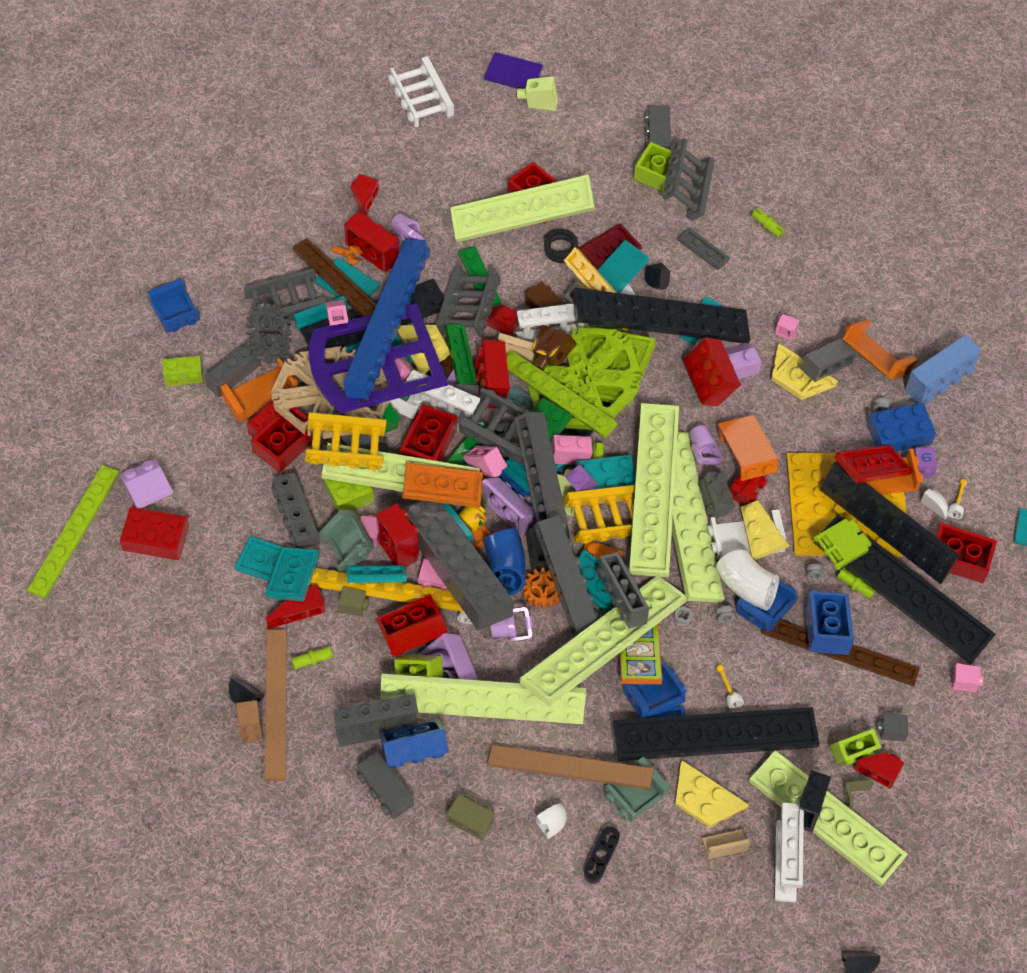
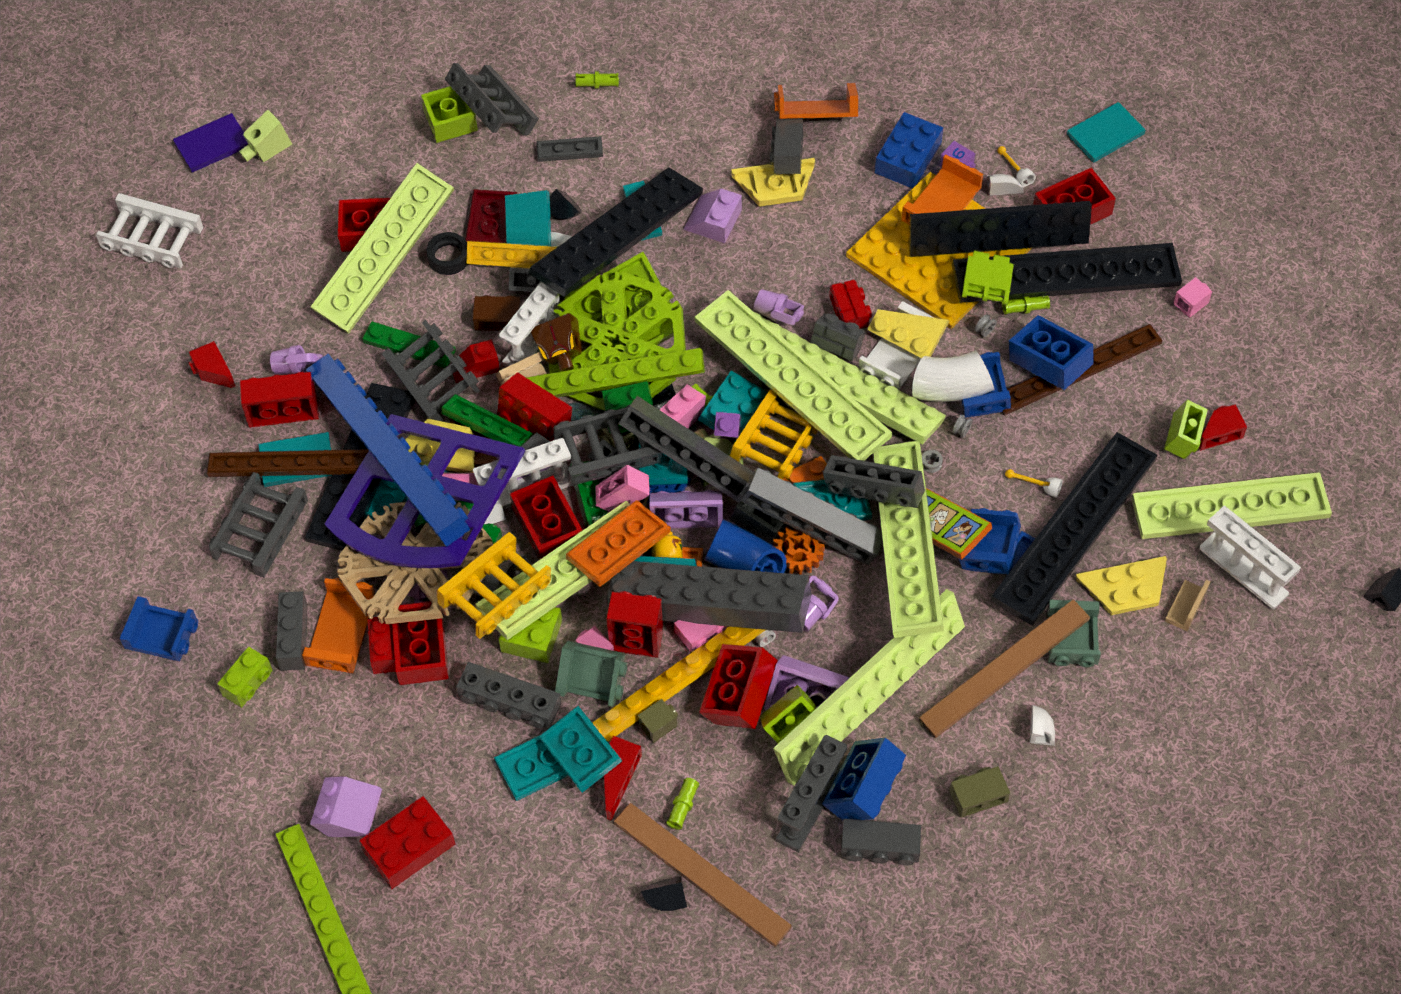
camera: 45 degrees left, 0 degrees up
(249, 721) = (707, 909): medium nougat brick -> none
(268, 319) = (278, 554): dark grey gear -> none
(313, 314) = (308, 506): teal tile -> none
(336, 312) = (330, 488): bright pink brick -> none
(349, 253) = (265, 430): orange bar -> none
(376, 574) = (651, 676): teal tile -> none
(590, 865) = (1114, 703): black beam -> none
(658, 126) = (406, 79): dark grey brick -> none
(711, 372) = (712, 240): red brick -> none
(749, 447) = (817, 271): orange panel -> none
(787, 327) = (720, 150): bright pink plate -> none
(813, 798) = (1221, 493): black panel -> none
(853, 786) = (1220, 467): olive bracket -> none
(873, 463) = (934, 193): red tile -> none
(881, 404) = (870, 146): light grey bush -> none
(893, 727) = (1191, 386): dark grey brick -> none
(943, 370) = (887, 73): medium blue brick -> none

